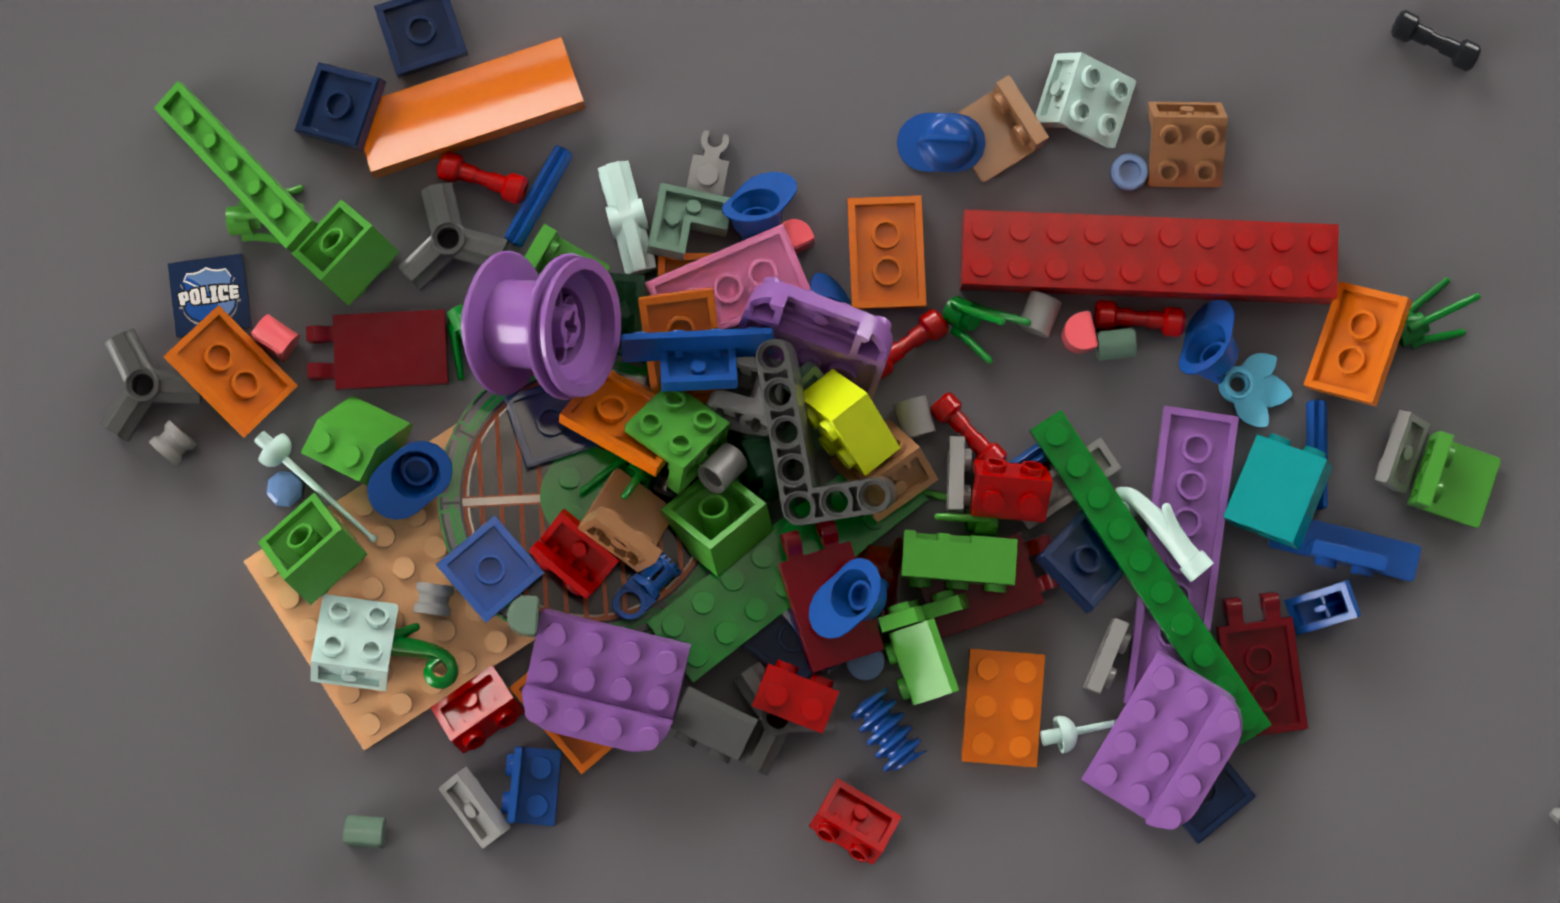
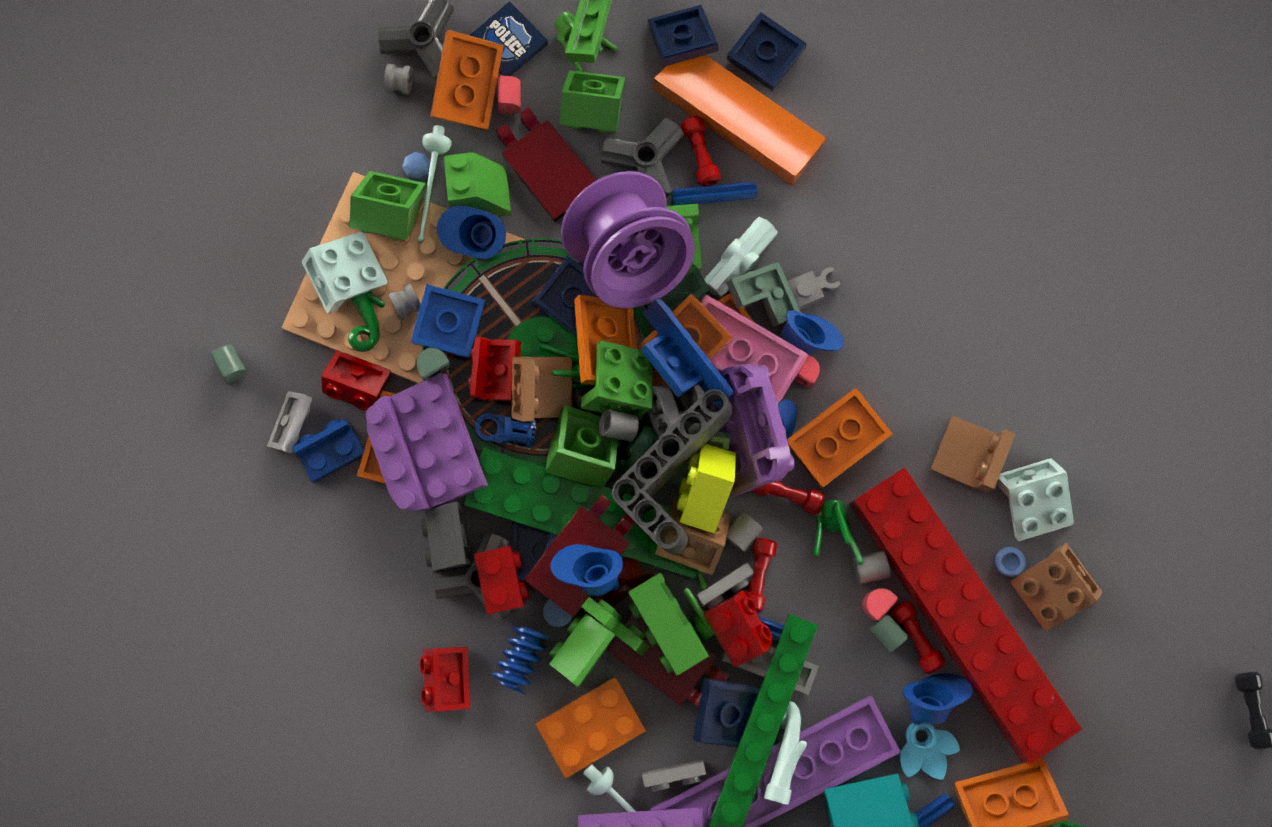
camera: 60 degrees right, 5 degrees down
(941, 142) = (937, 423): blue piece -> none

